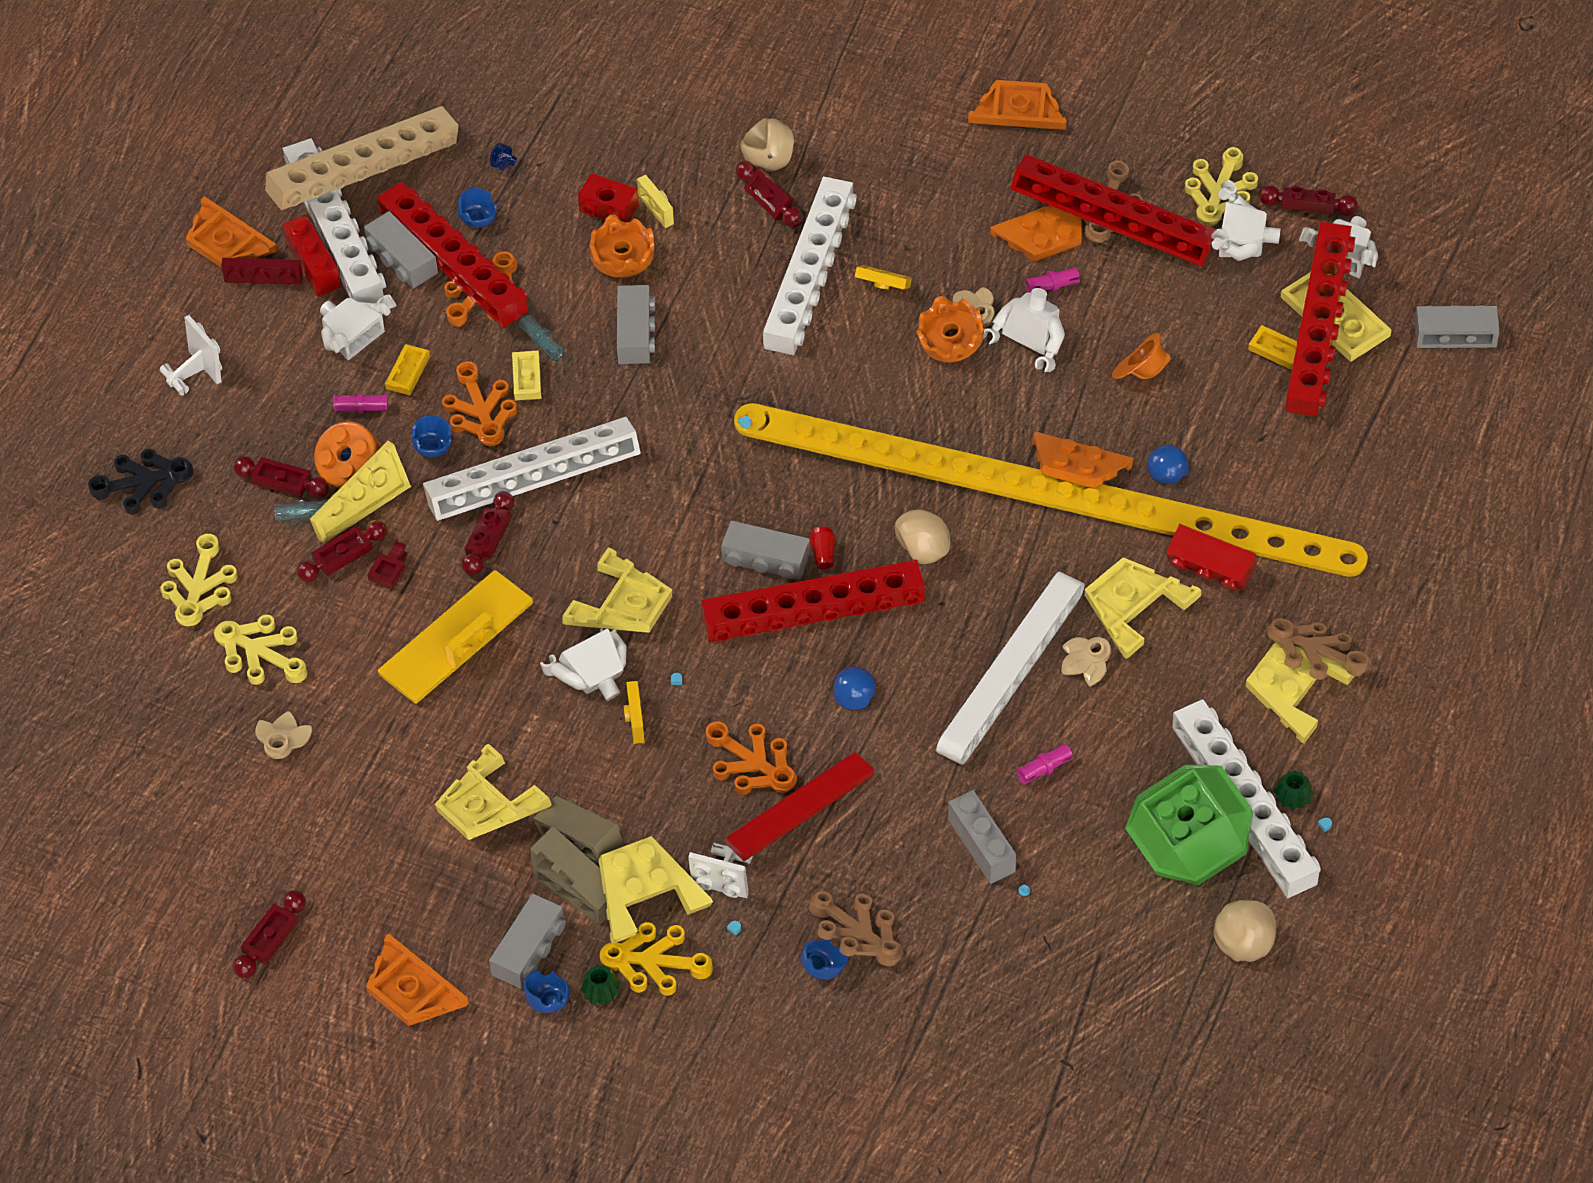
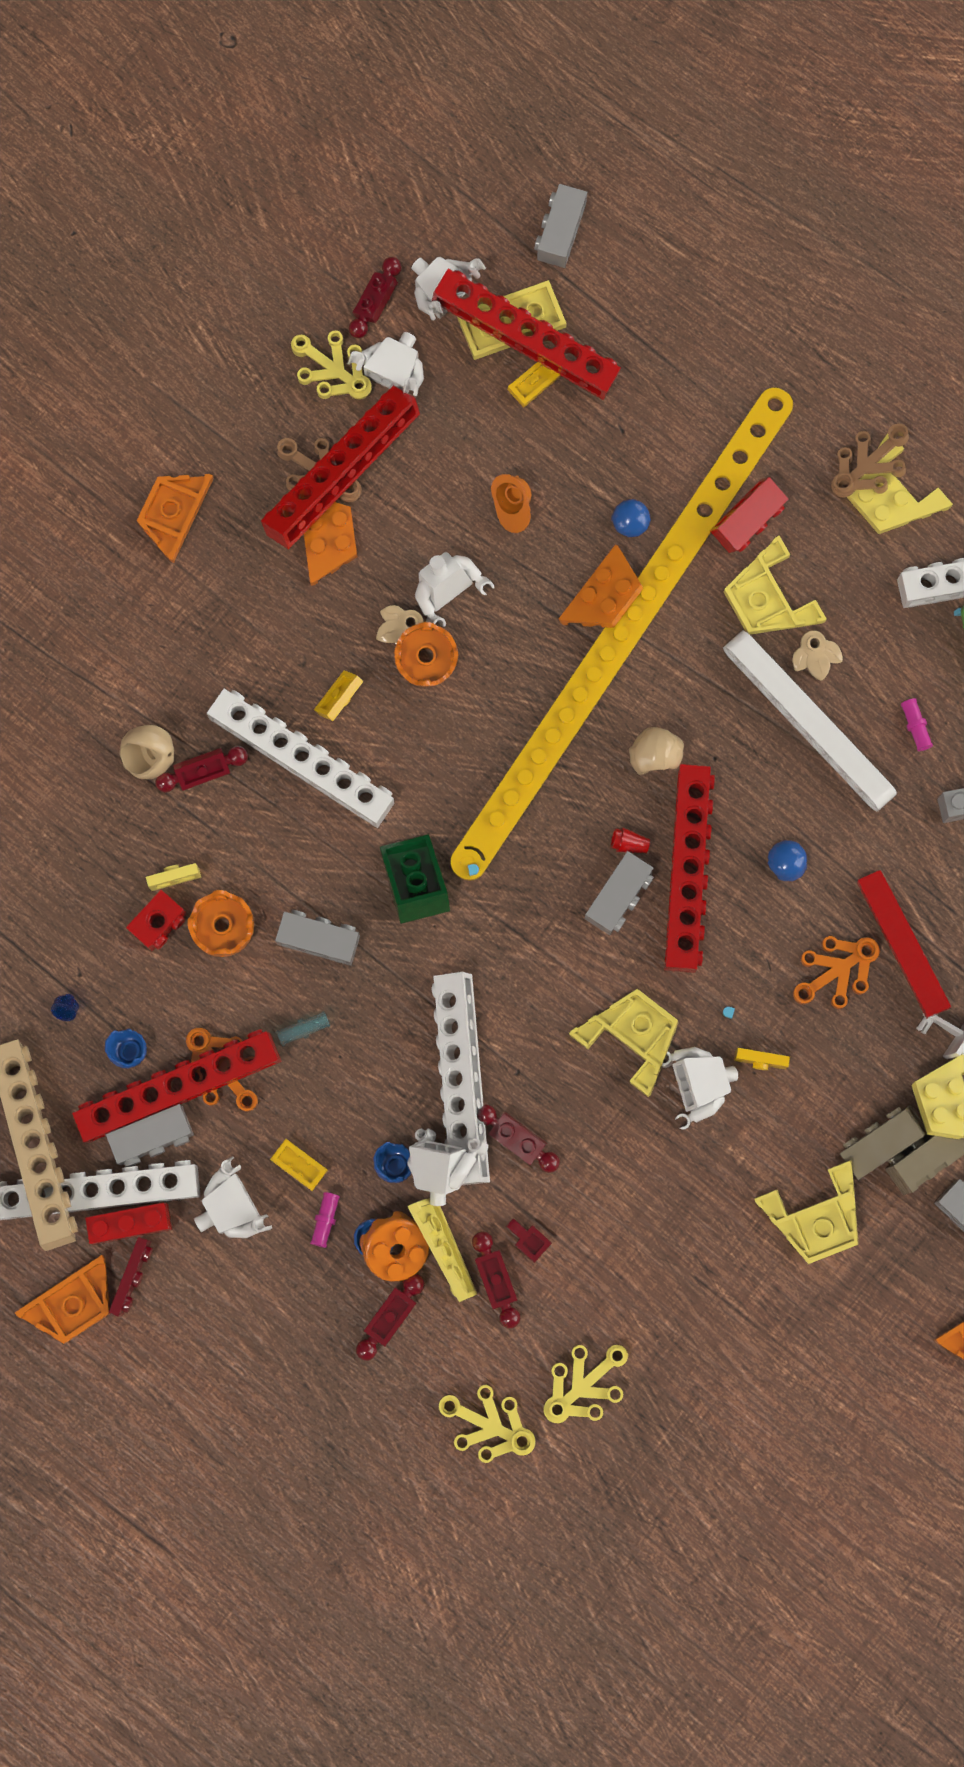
camera: 75 degrees left, 25 degrees up
(144, 479) = (347, 1447): black plant -> none
(204, 357) = (227, 1353): white plate -> none
(269, 934) = (903, 1446): dark red plate -> none
(282, 733) = (684, 1381): tan plate -> none
(297, 510) = (436, 1306): clear light blue pin -> none
(438, 461) = (441, 1166): none -> white torso
(455, 636) = (625, 1198): yellow bracket -> none
(489, 432) = (368, 1107): orange plant -> none
(526, 375) = (343, 1054): light yellow plate -> none
(719, 383) = (415, 879): none -> dark green slope
(1053, 280) = (392, 548): dark pink pin -> none

